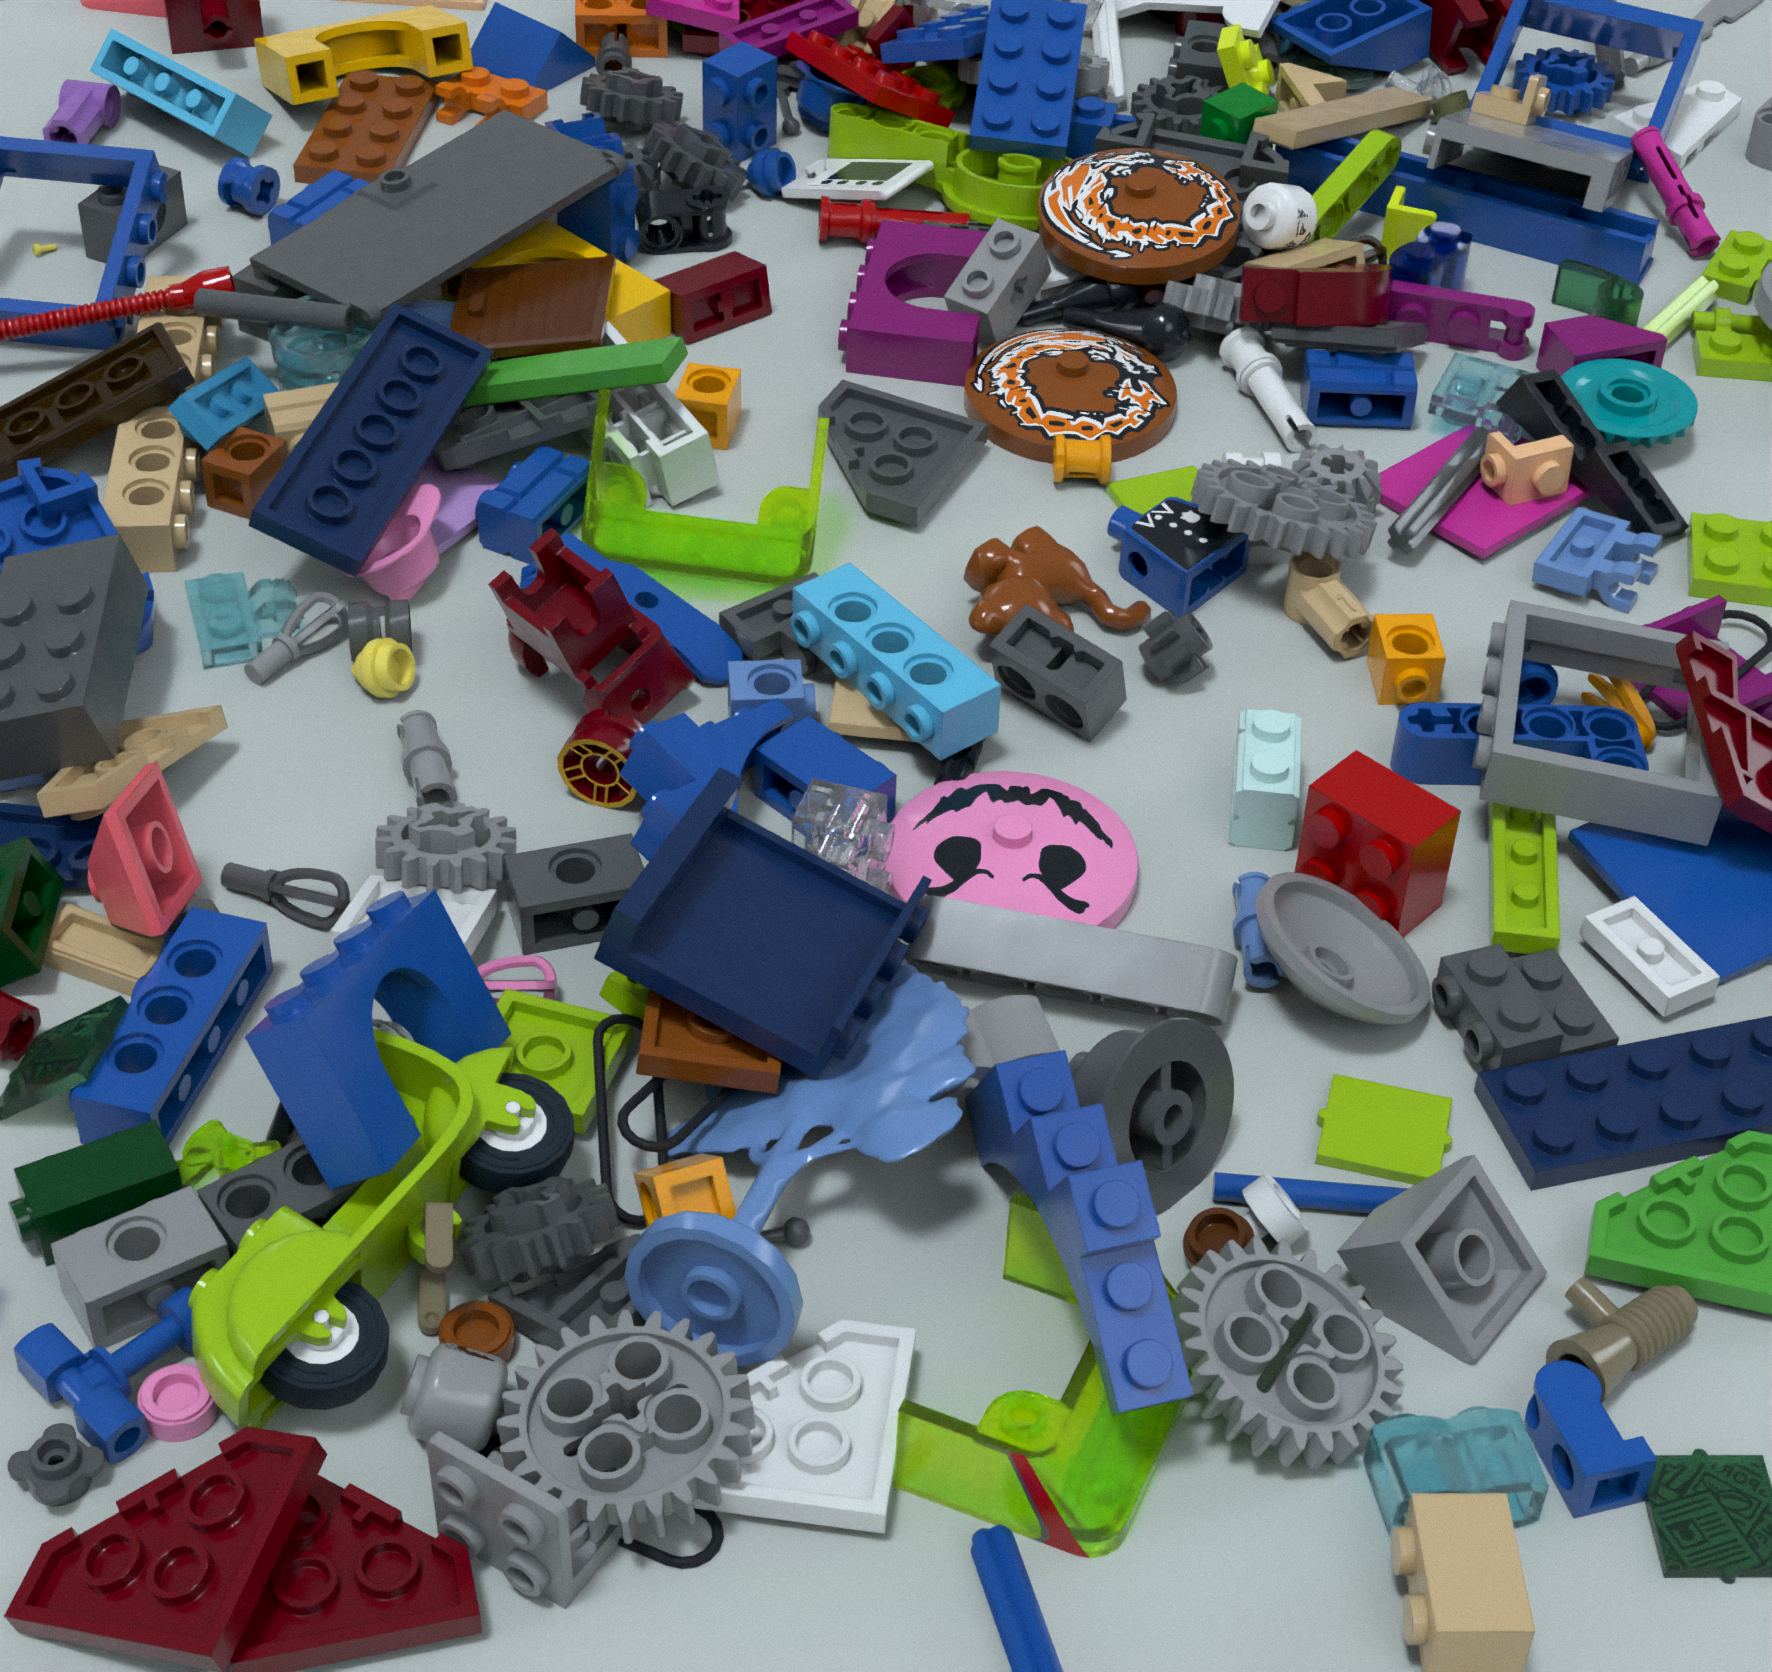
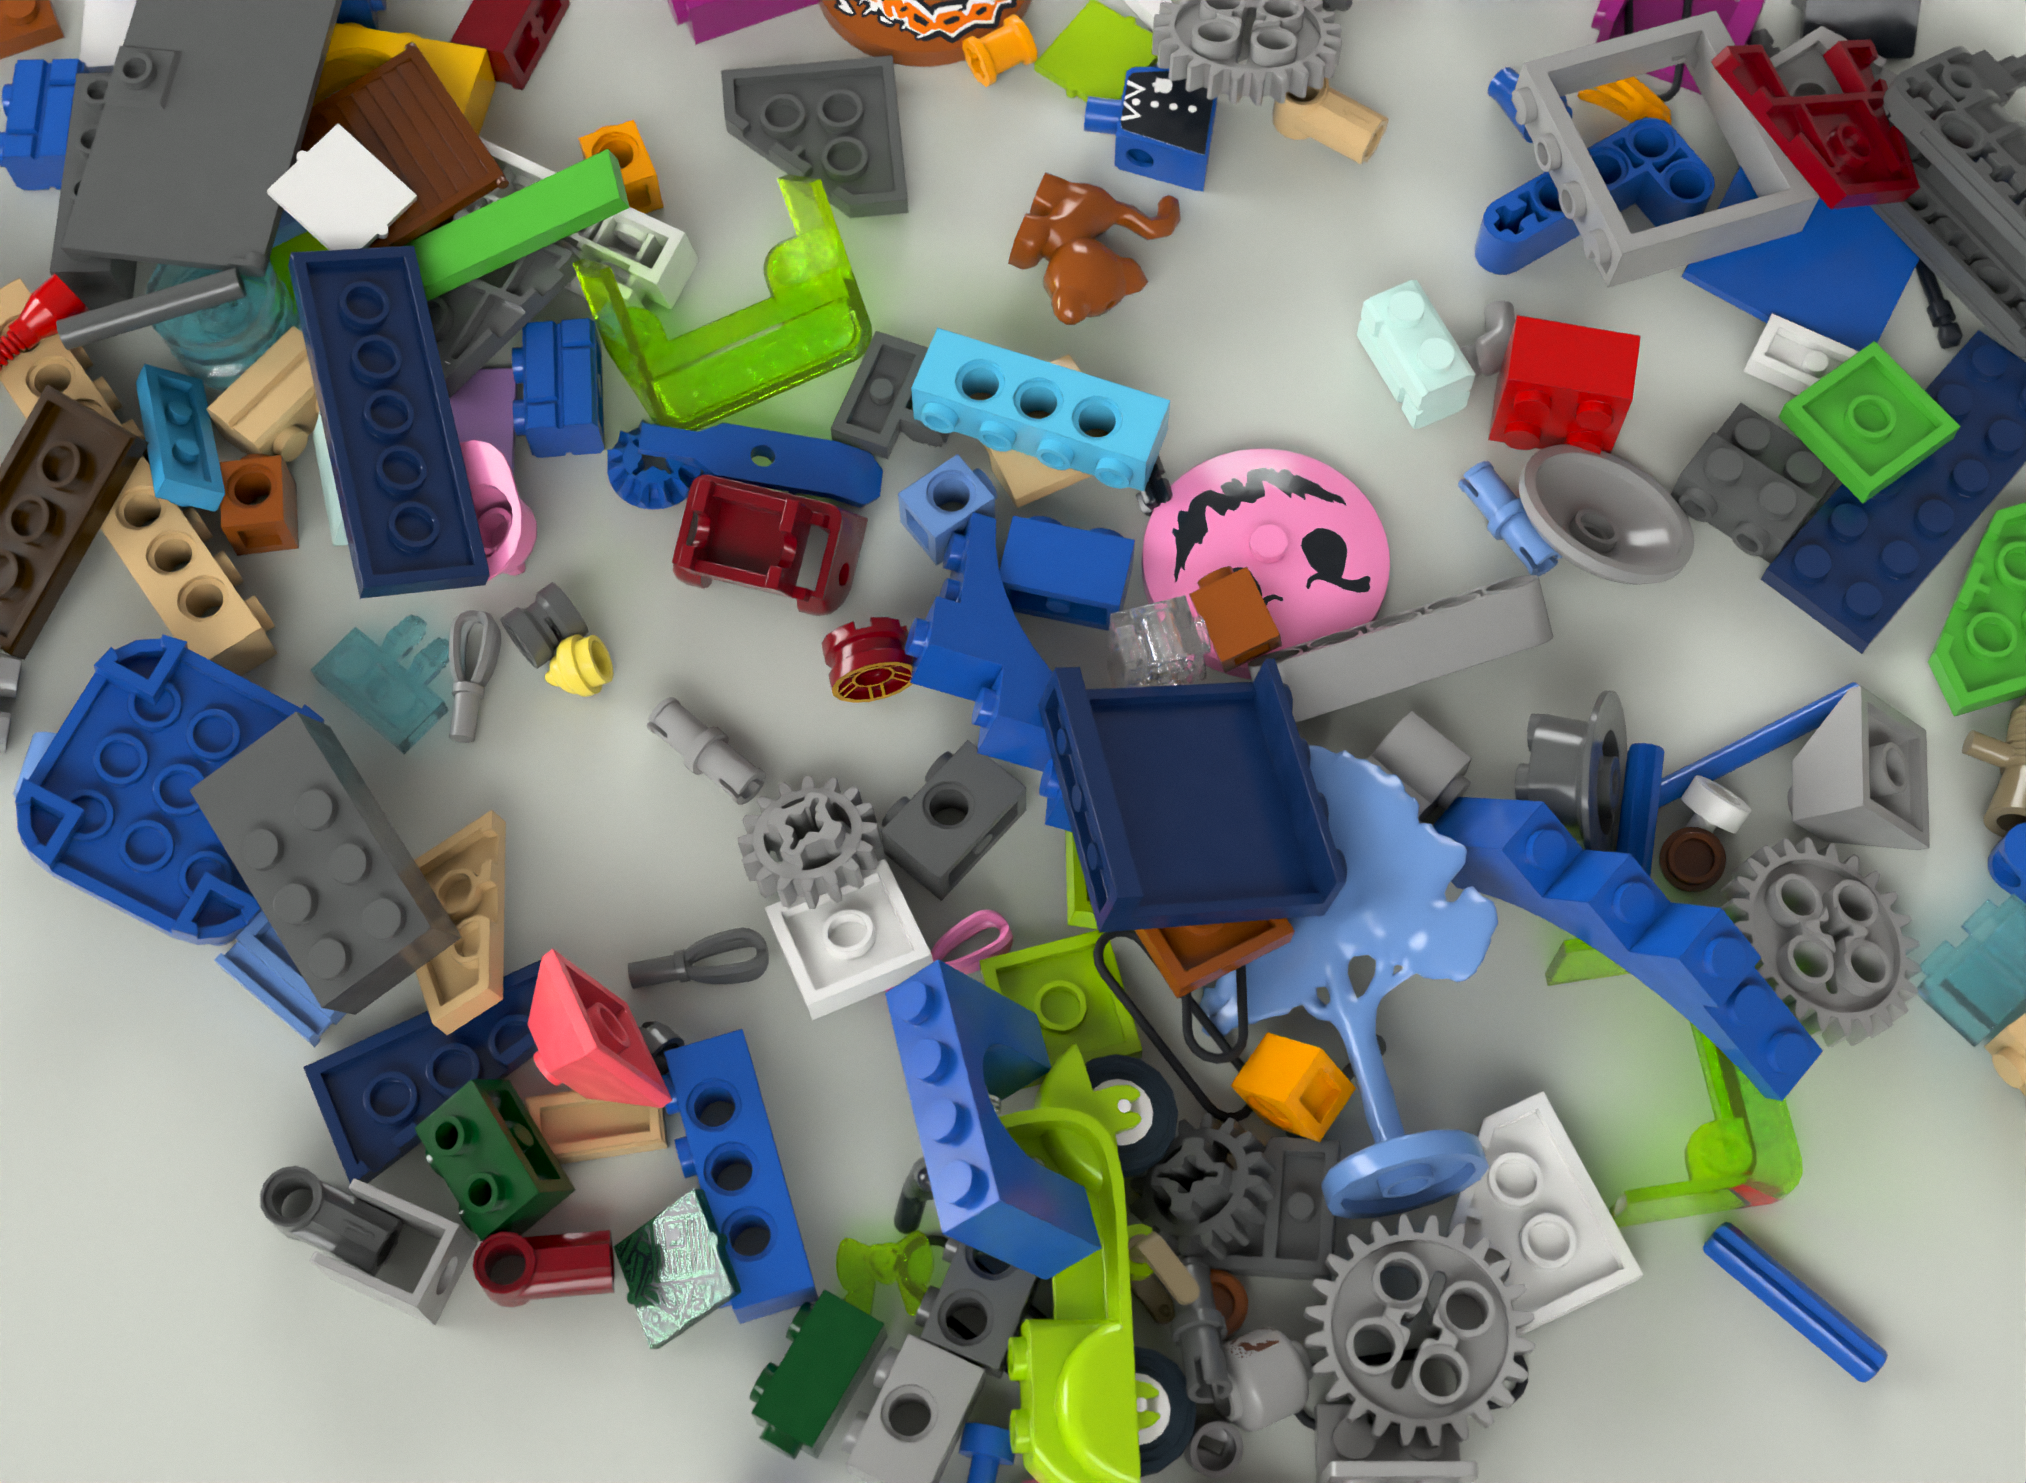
camera: 30 degrees left, 25 degrees up
(385, 1413) = (1207, 1461): none -> flat silver hinge
(431, 1313) = (1199, 1335): none -> dark grey pin
(472, 297) = (342, 193): none -> white piece
(934, 845) = (1235, 616): none -> dark orange brick
(1058, 672) = (1175, 335): dark grey brick -> none
(1175, 646) = (1241, 242): dark grey gear -> none
(1198, 1171) = (1640, 803): none -> blue axle
(1383, 1130) = (1726, 664): lime piece -> none
(1405, 658) = (1426, 126): light orange brick -> none
(1523, 879) = (1672, 340): lime plate -> none
(1659, 996) = (1868, 422): none -> bright green plate

